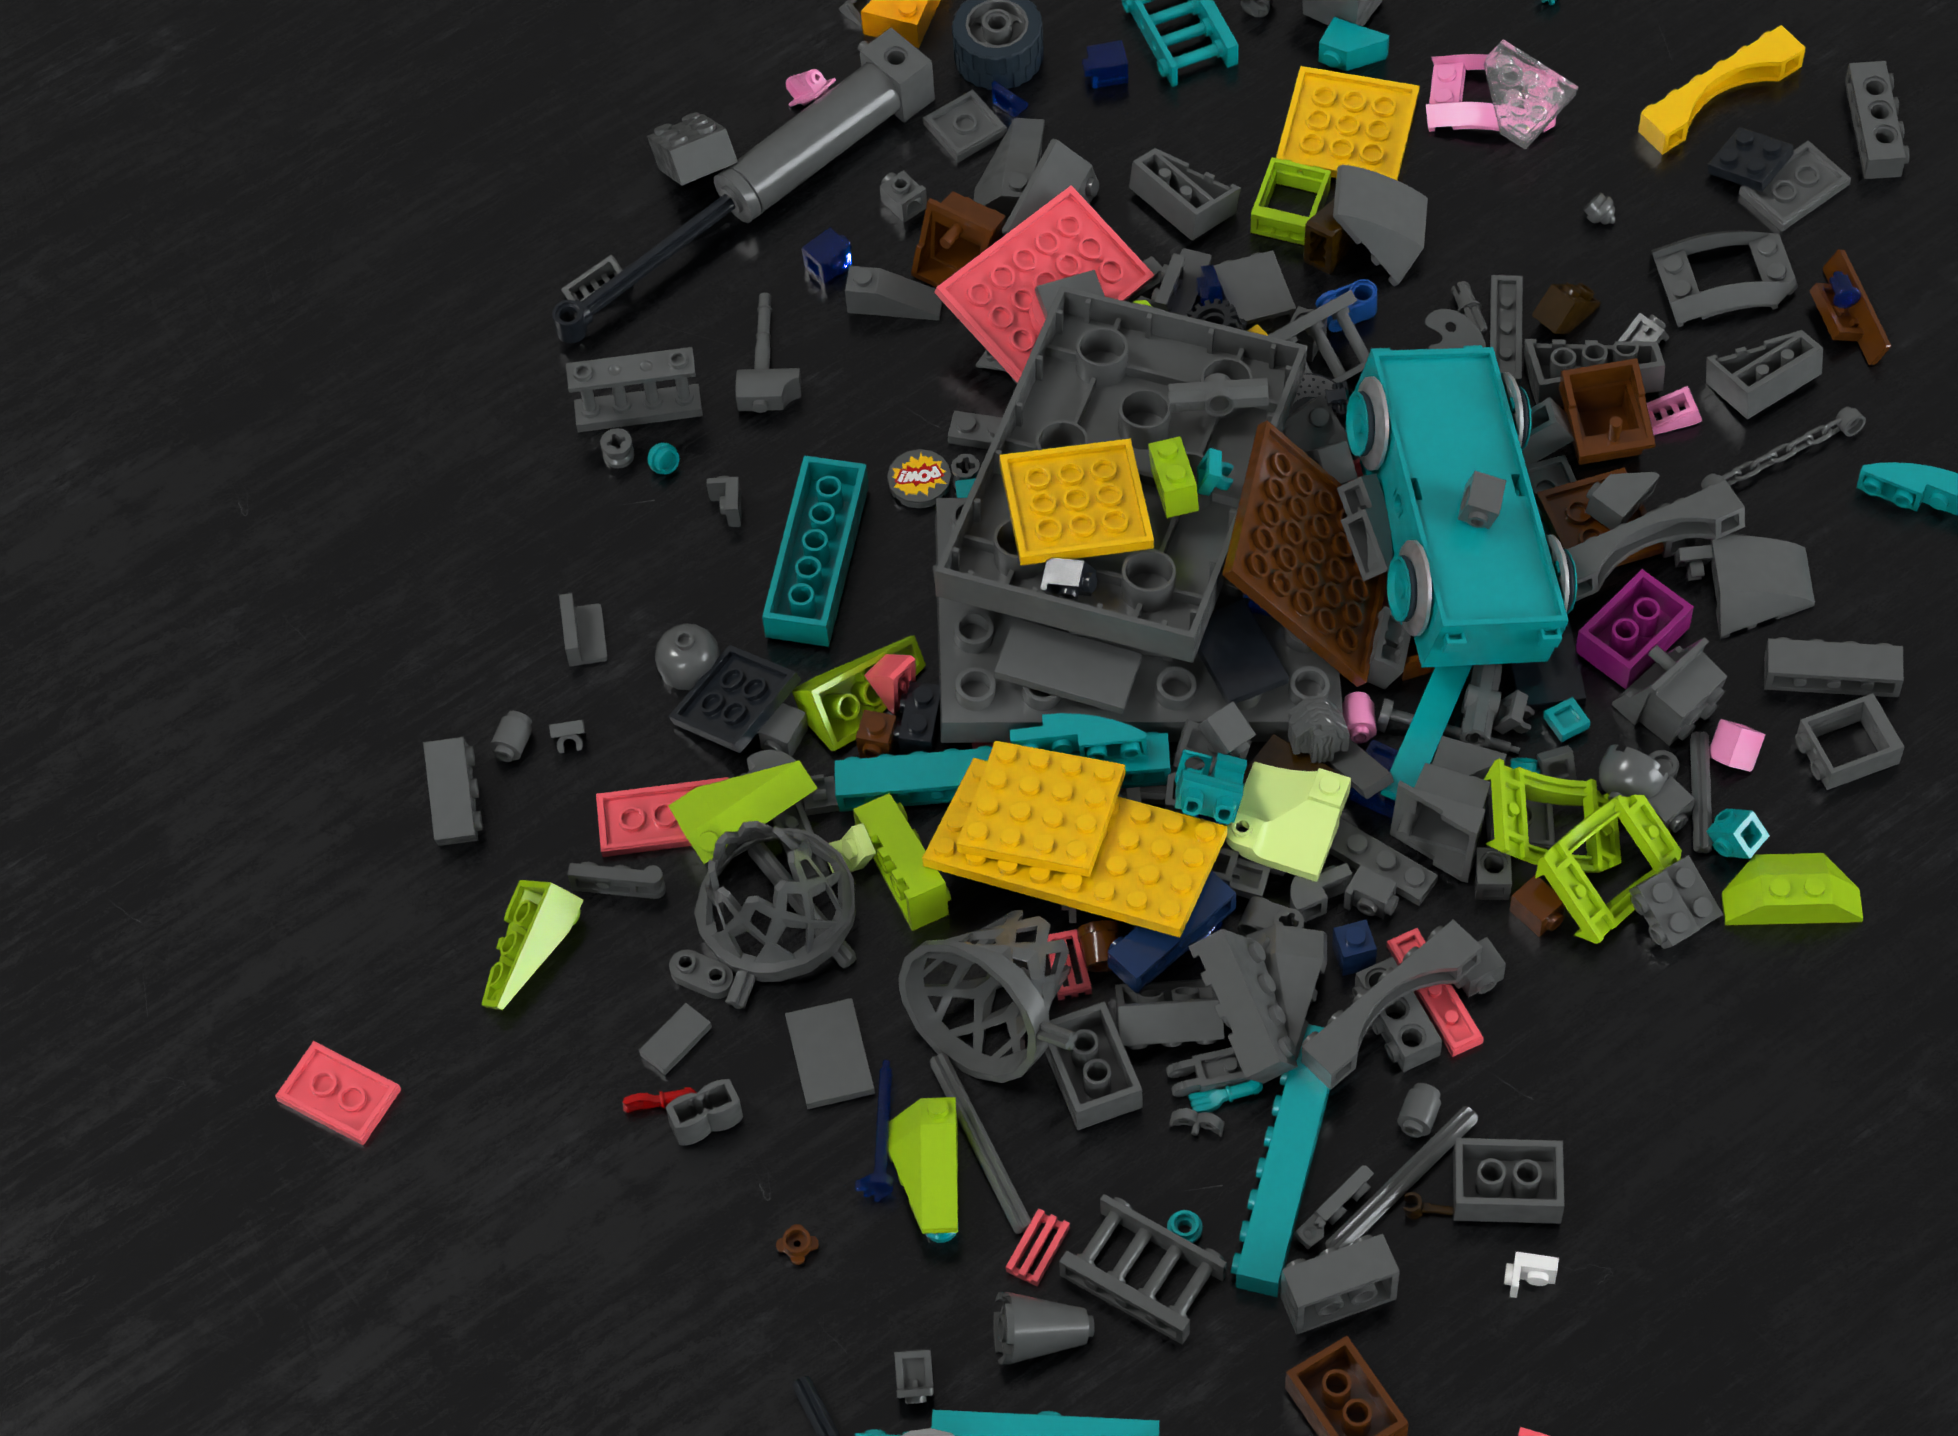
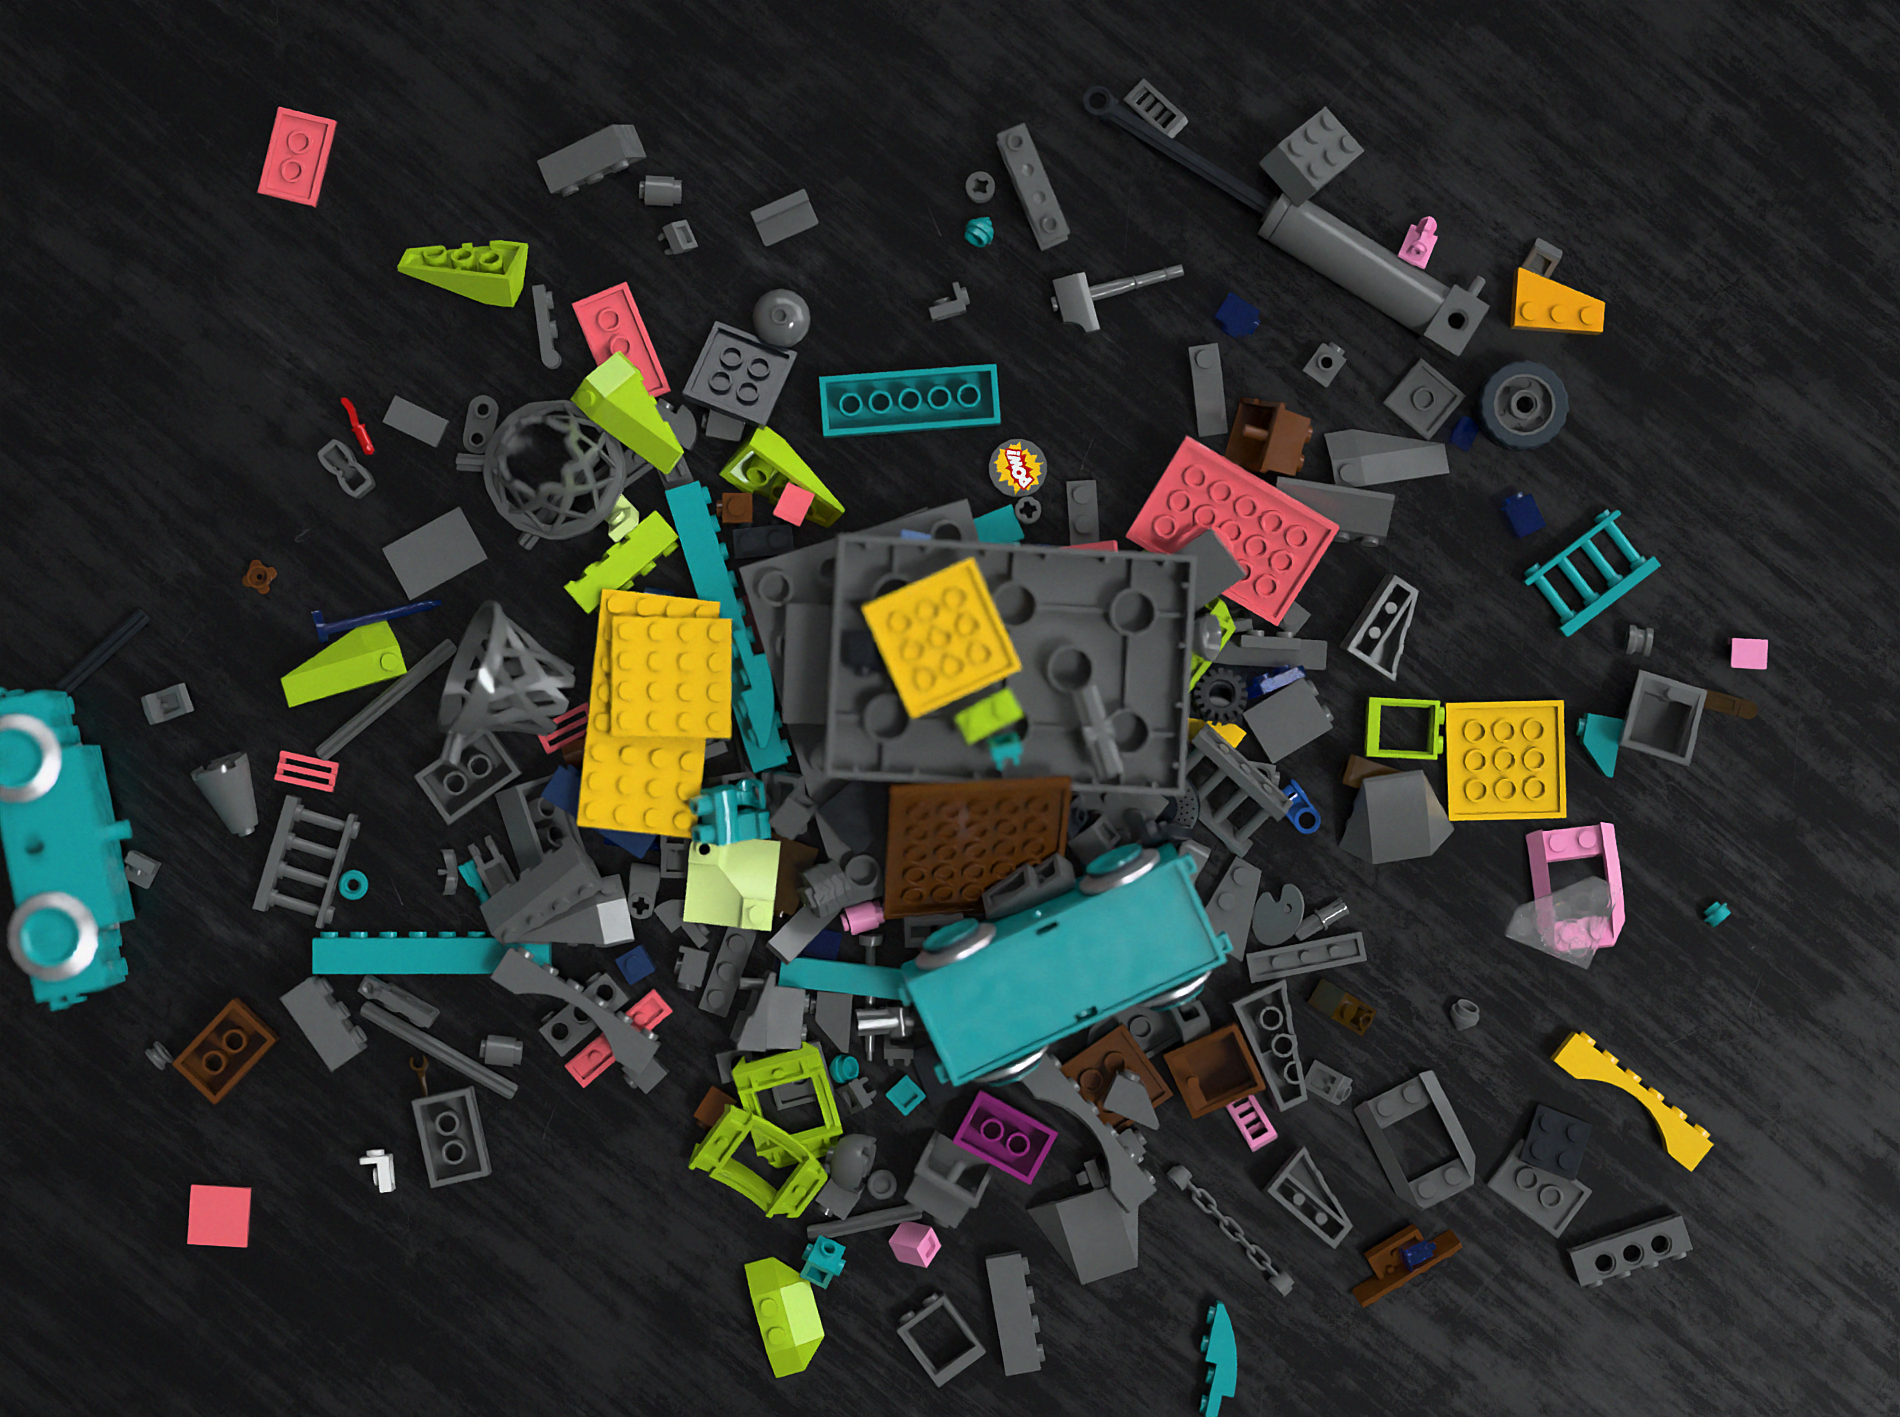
camera: 70 degrees right, 30 degrees up
(1482, 500) = (1041, 989): dark grey brick -> none
(1675, 903) = (743, 1221): dark grey plate -> none

